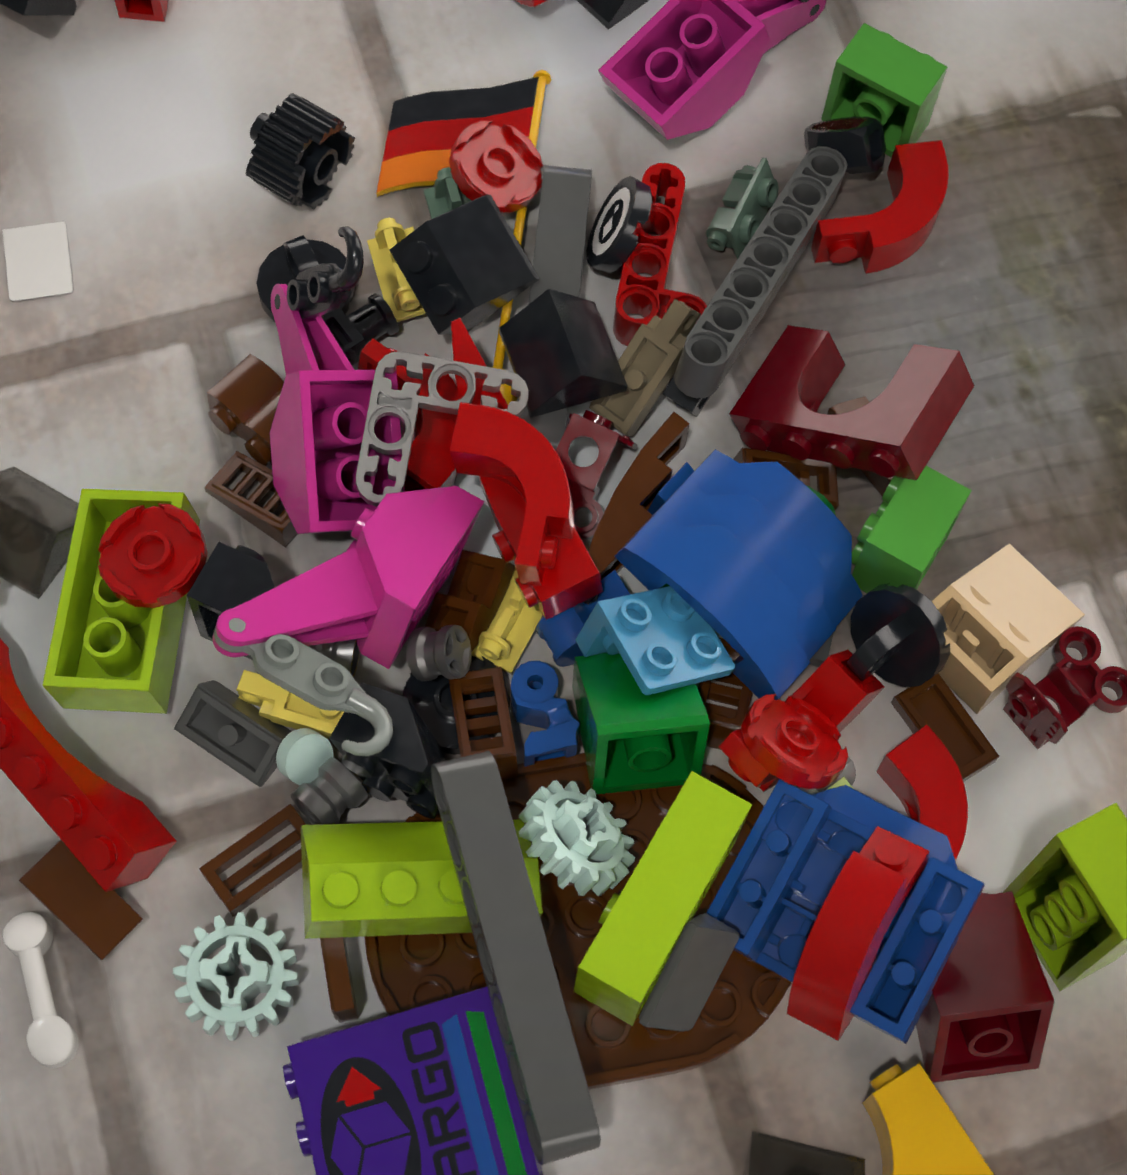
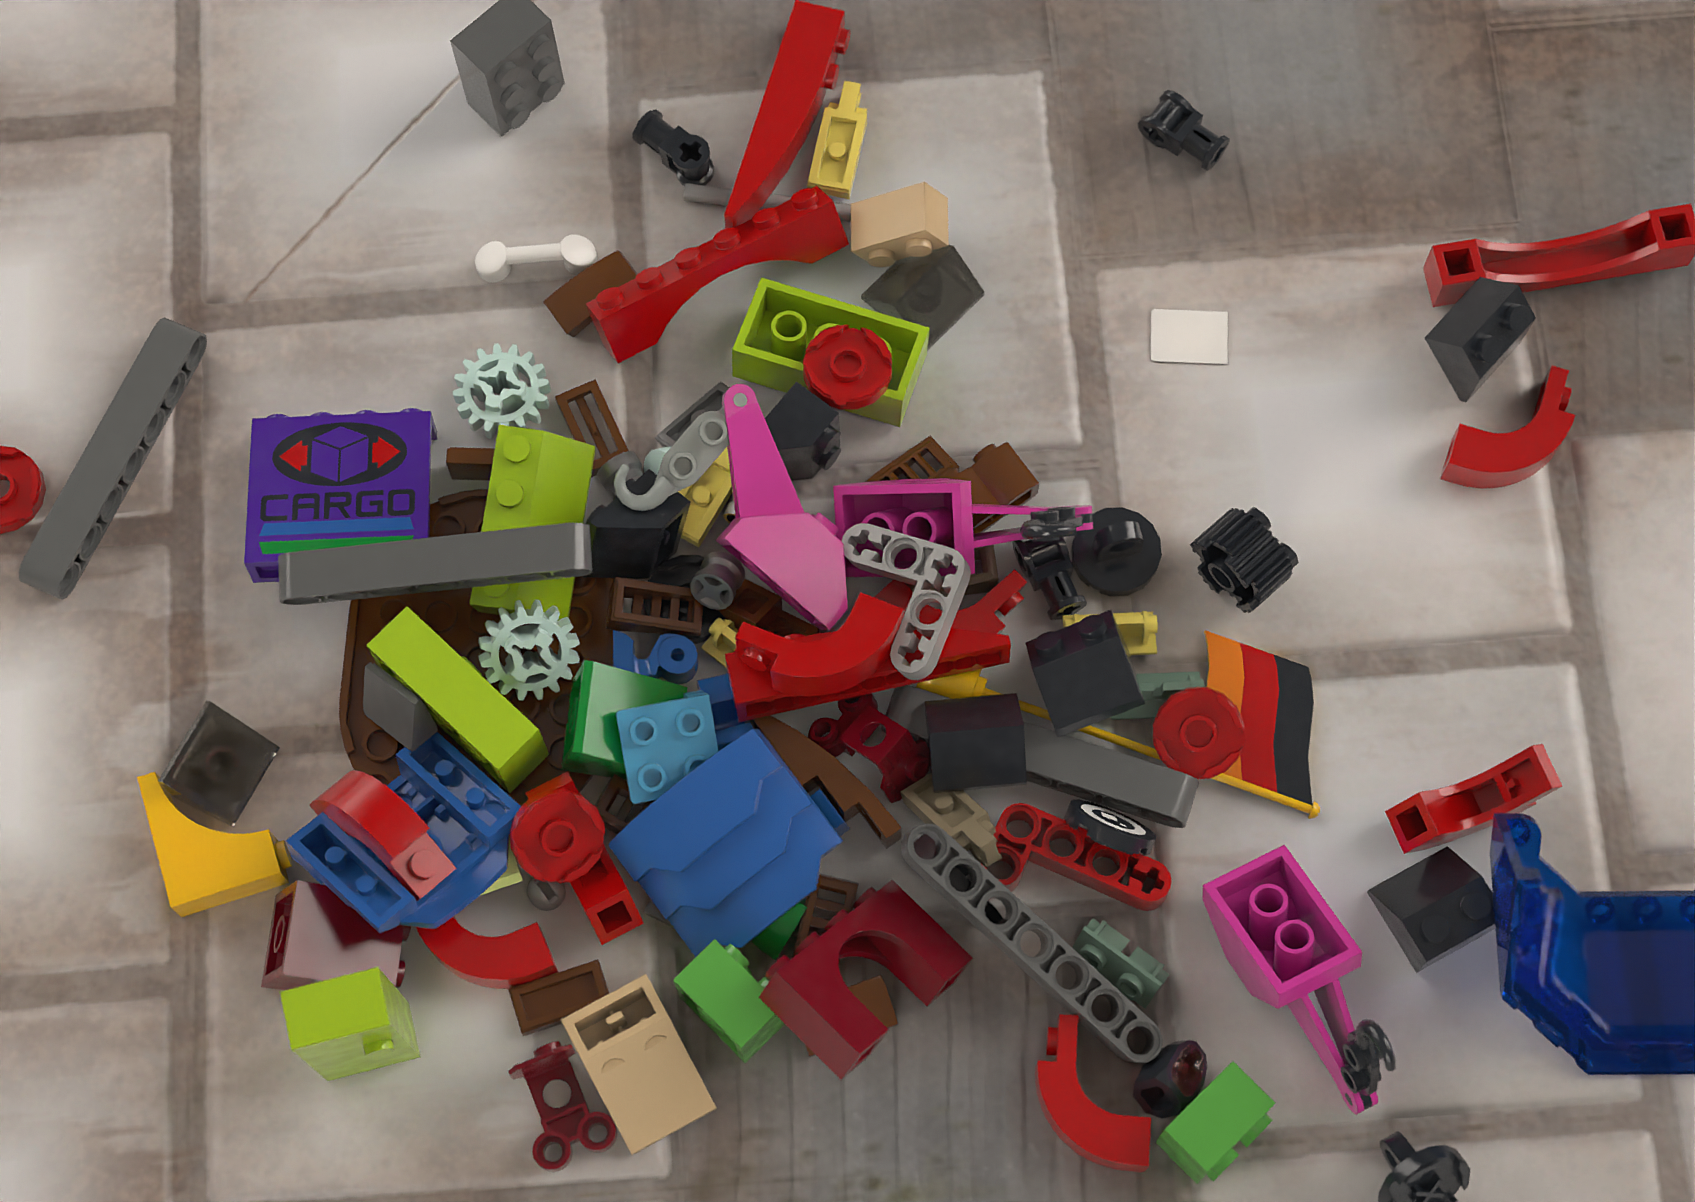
camera: 110 degrees right, 5 degrees up
(898, 636) = (636, 959): black tile -> none

